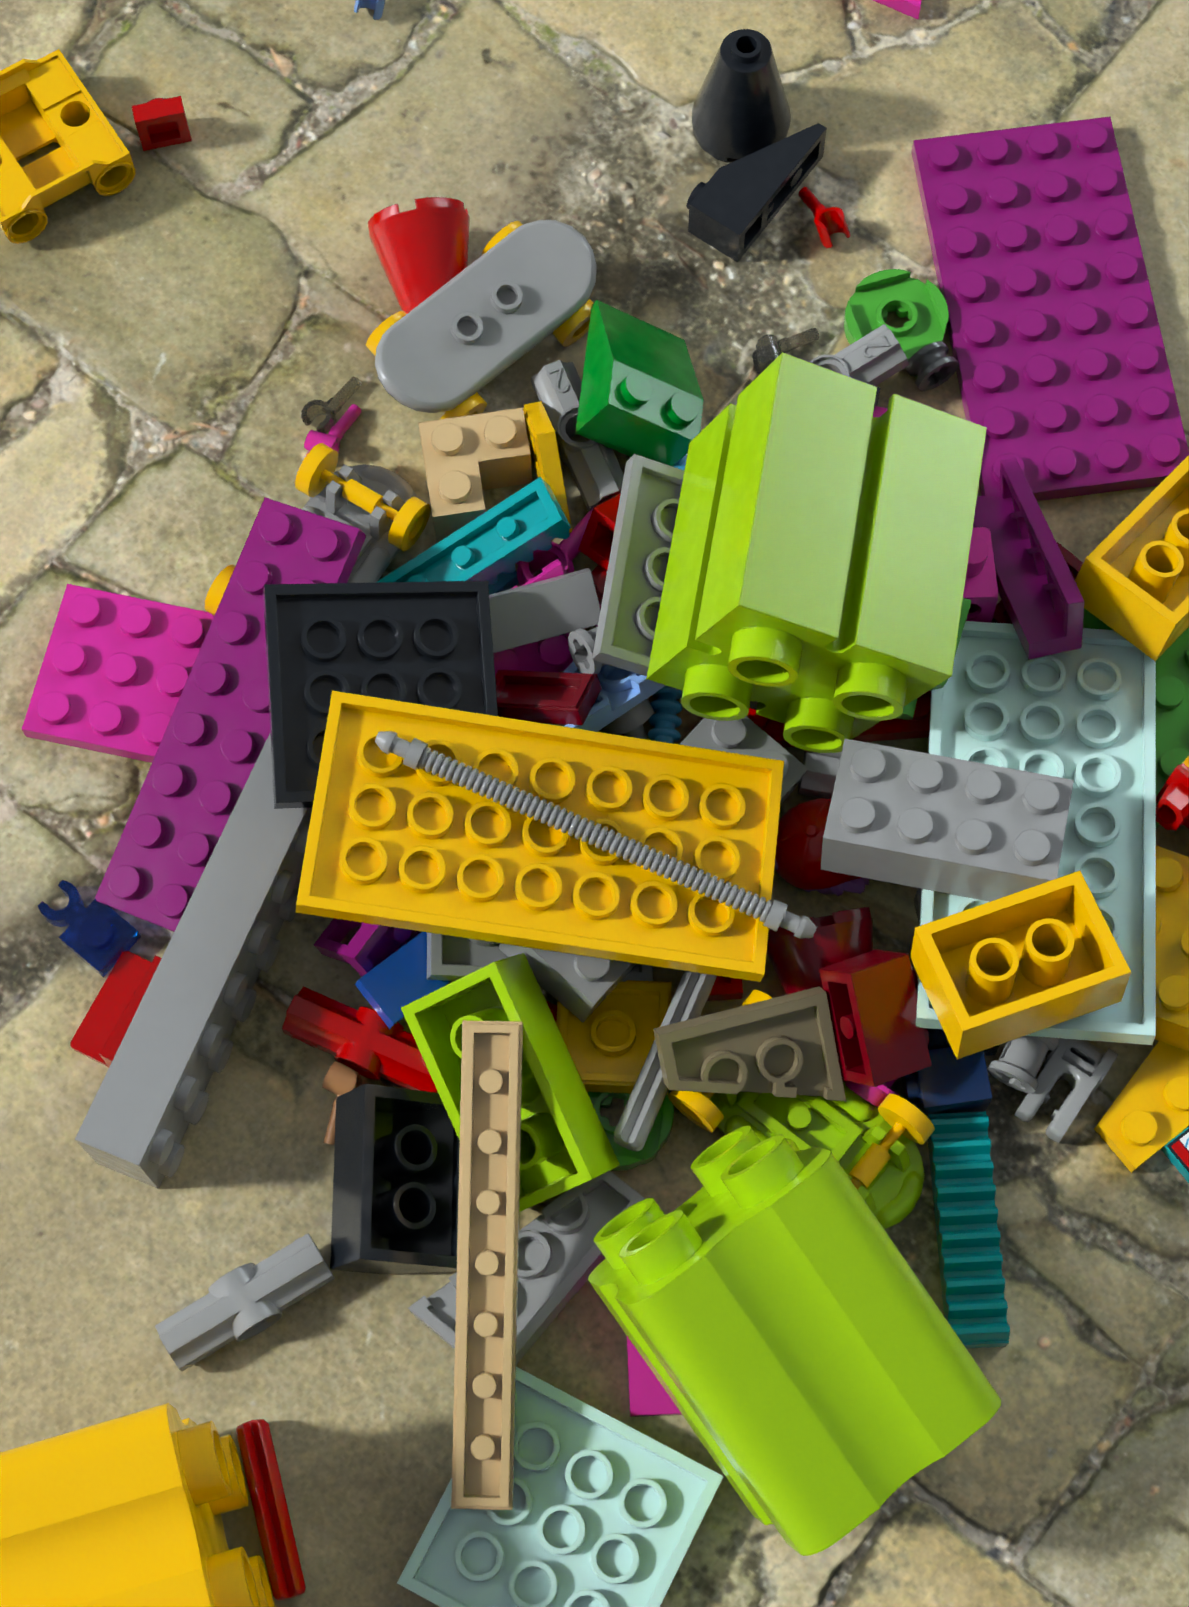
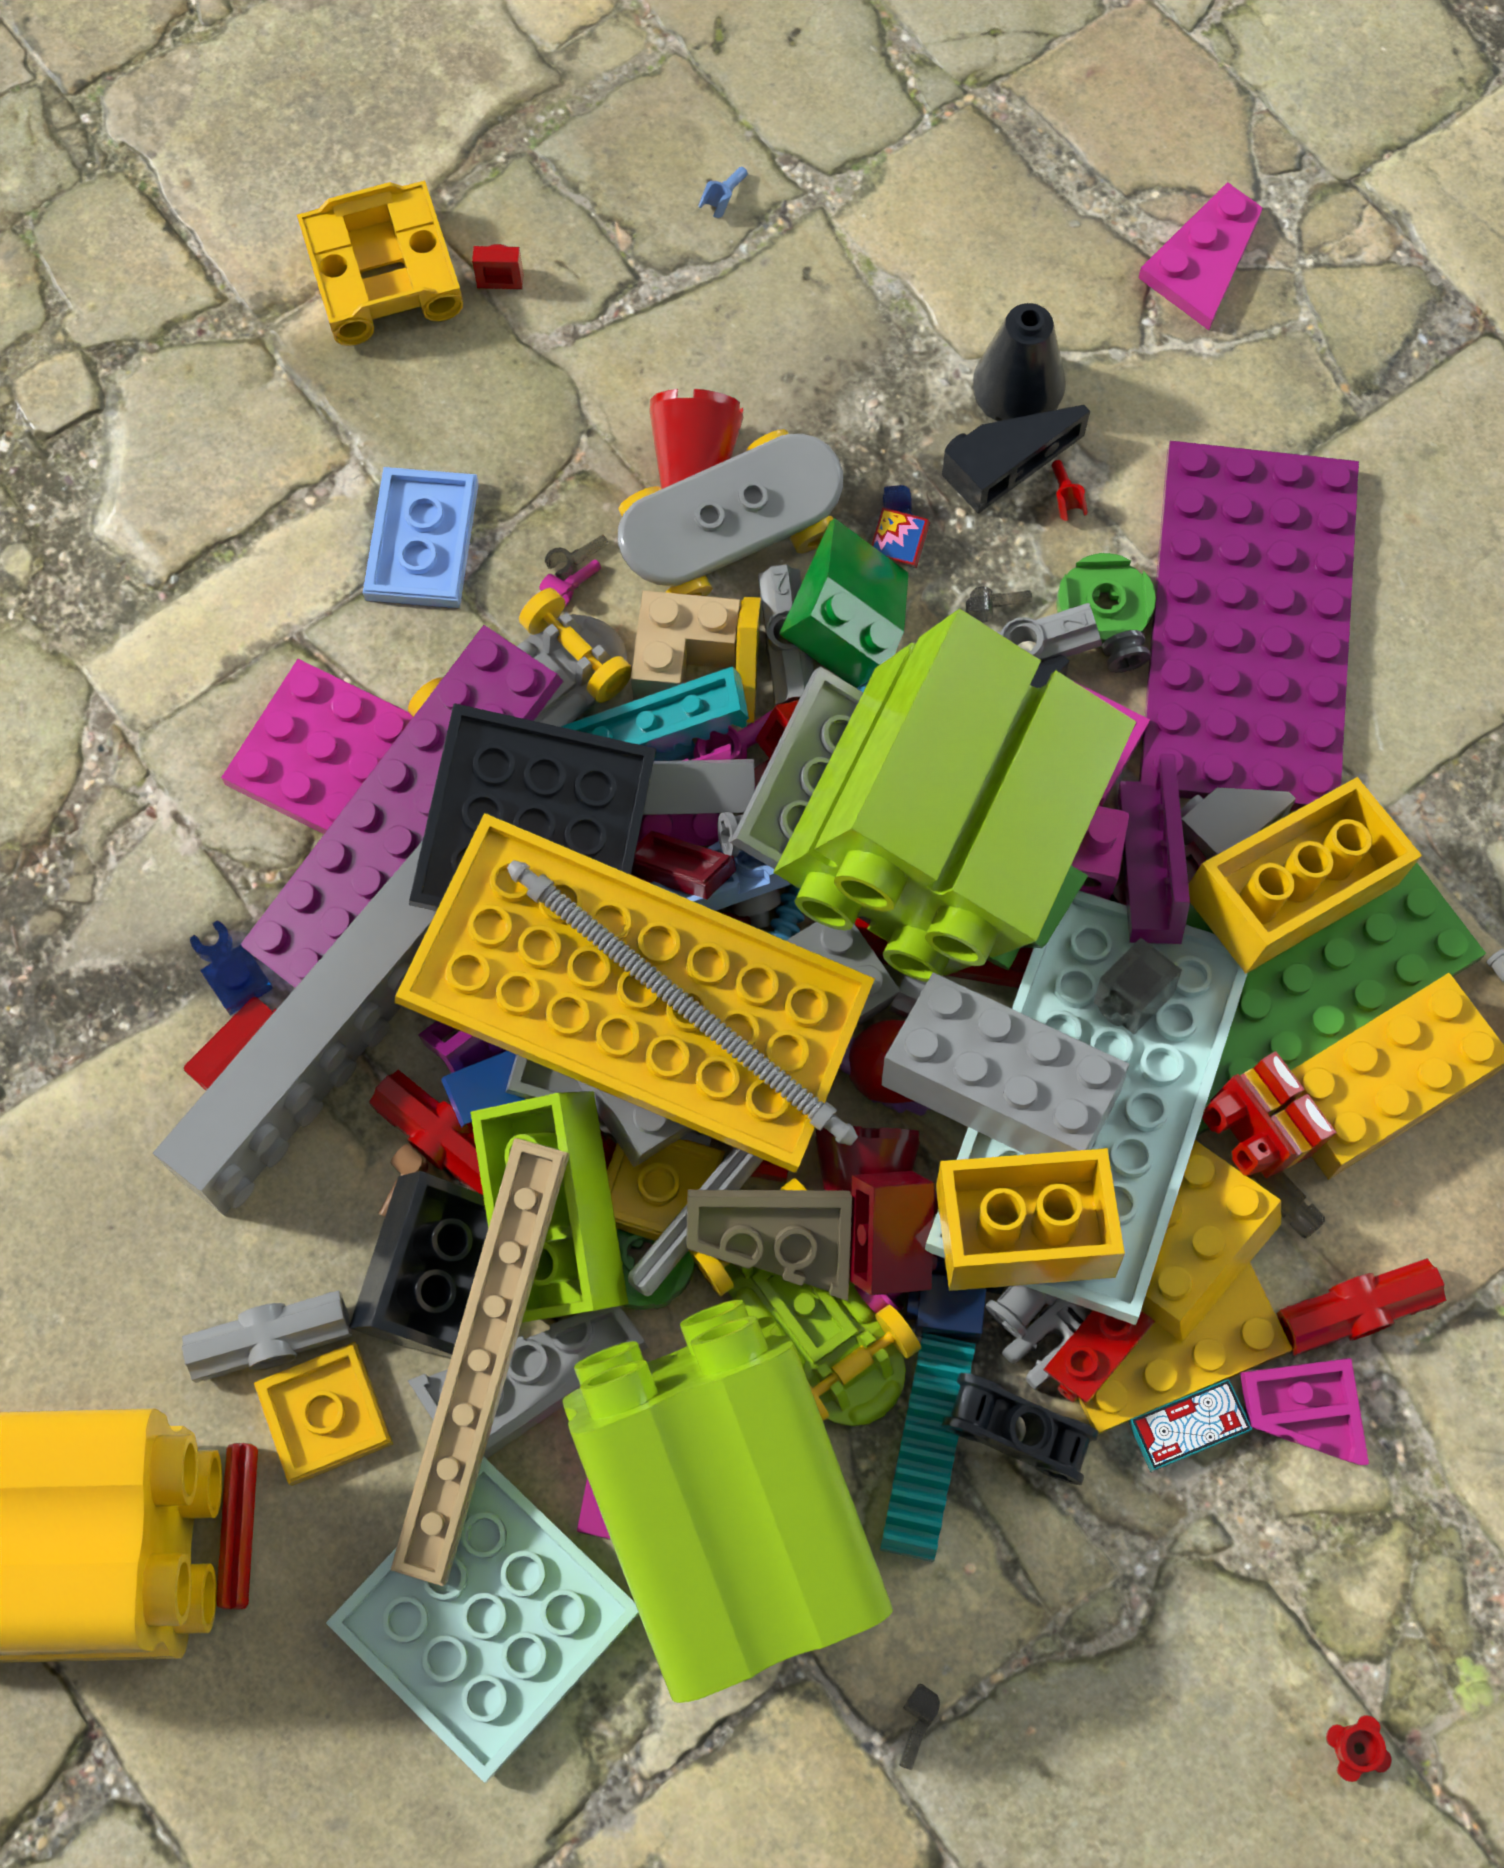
camera: 15 degrees right, 0 degrees up
(161, 425) = (421, 537): none -> light blue tile
(327, 1367) = (323, 1413): none -> yellow tile
(654, 267) = (898, 499): none -> clear blue hand
(667, 303) = (901, 536): none -> tile
(1026, 1181) = (989, 1416): none -> black piece
(1042, 1496) = (924, 1706): none -> clear smoke hand
(1052, 701) = (1136, 986): none -> clear smoke brick
(1092, 508) = (1231, 816): none -> light grey slope
(1112, 1088) = (1094, 1353): none -> red hinge

